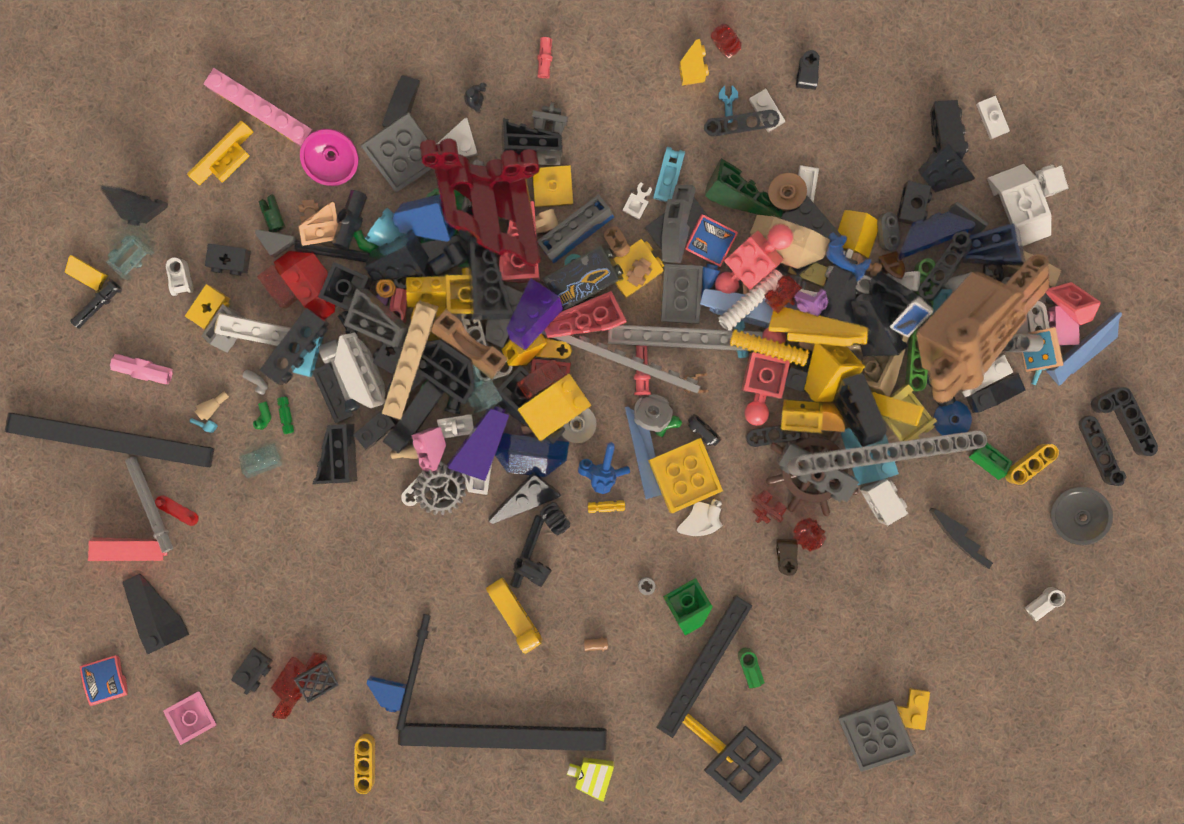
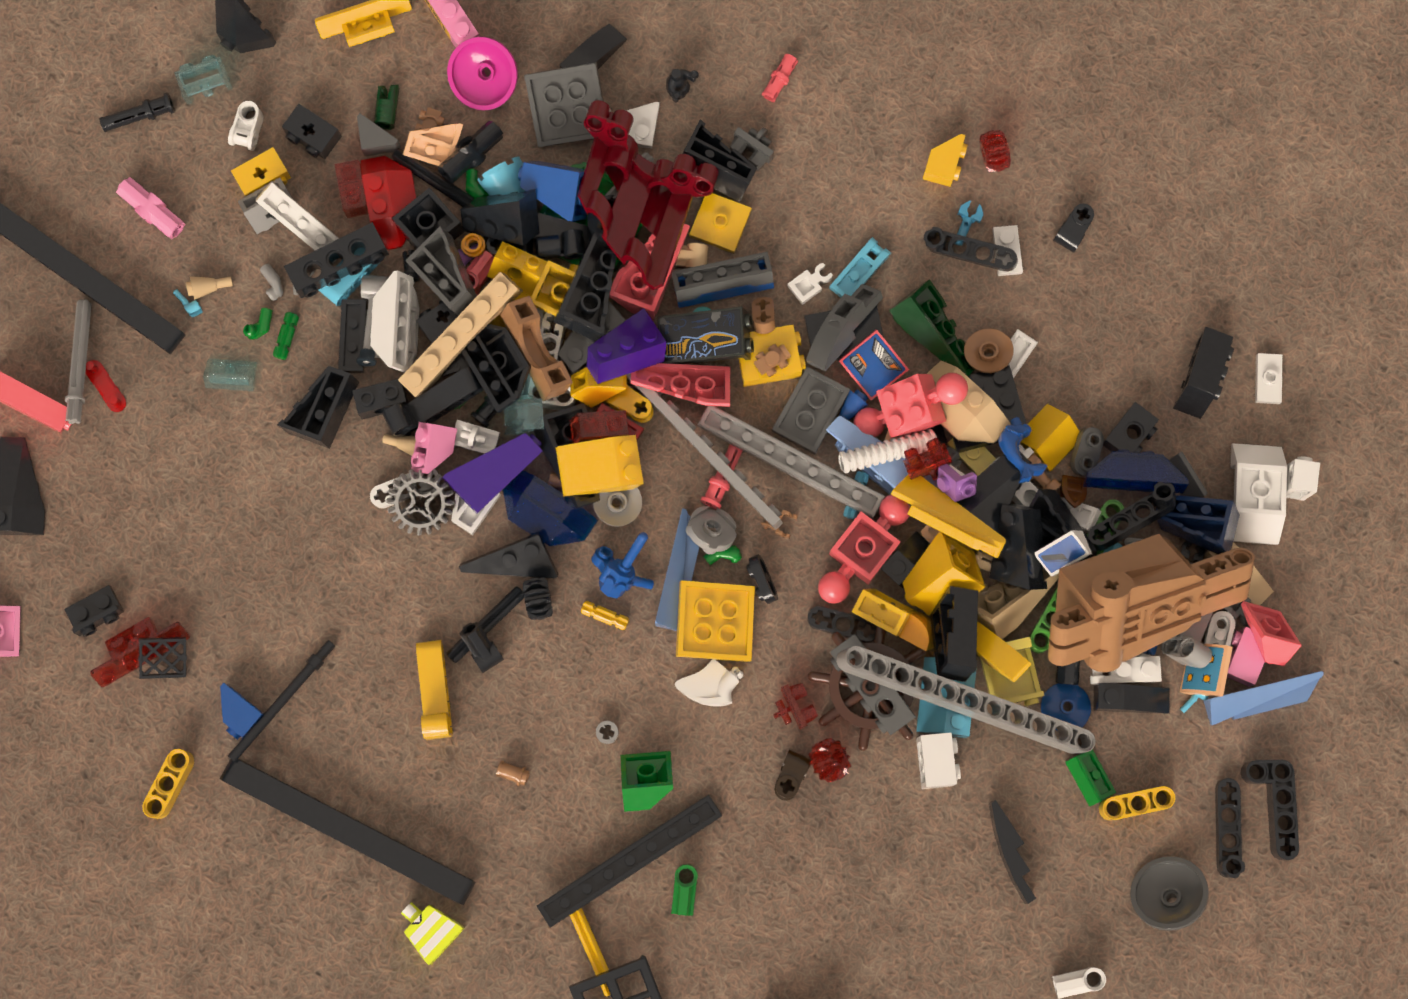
camera: 25 degrees right, 10 degrees down
(85, 273) = (144, 75): yellow slope -> none
(769, 347) = (882, 514): yellow piece -> none
(945, 169) = (1183, 407): black wing -> none

